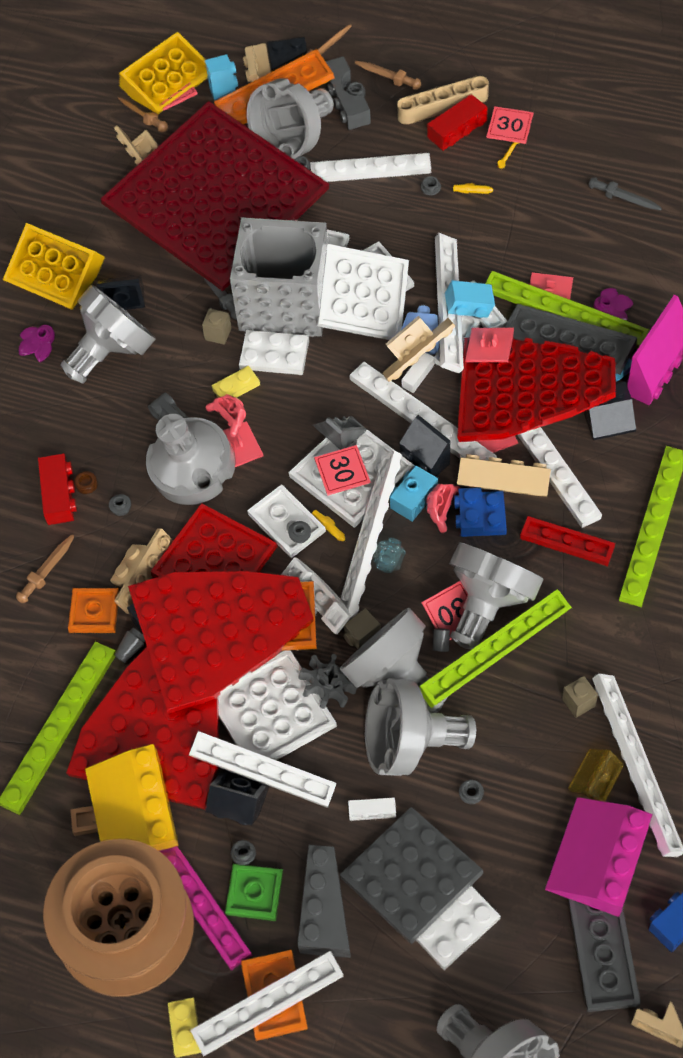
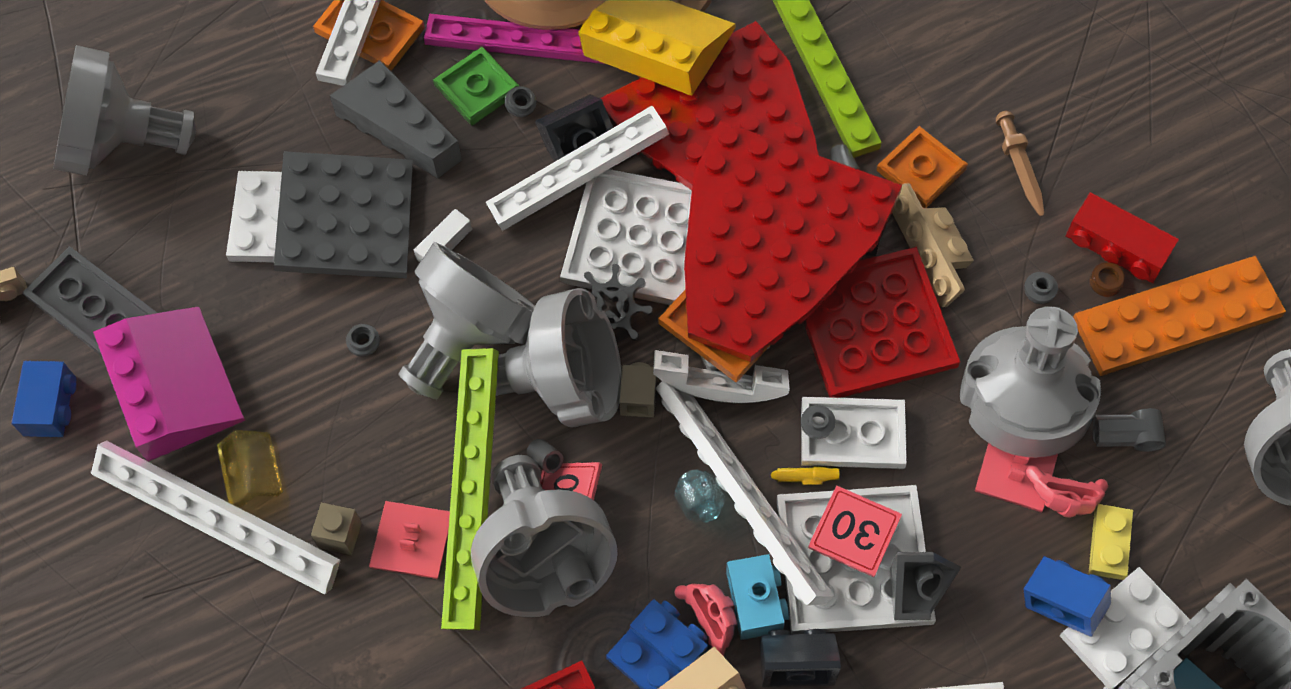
camera: 130 degrees right, 5 degrees up
(80, 440) = (1178, 315): none -> orange plate
(216, 326) = (1219, 577): dark tan brick -> none
(284, 374) = (1068, 595): none -> blue brick
(545, 667) = (411, 540): none -> coral piece

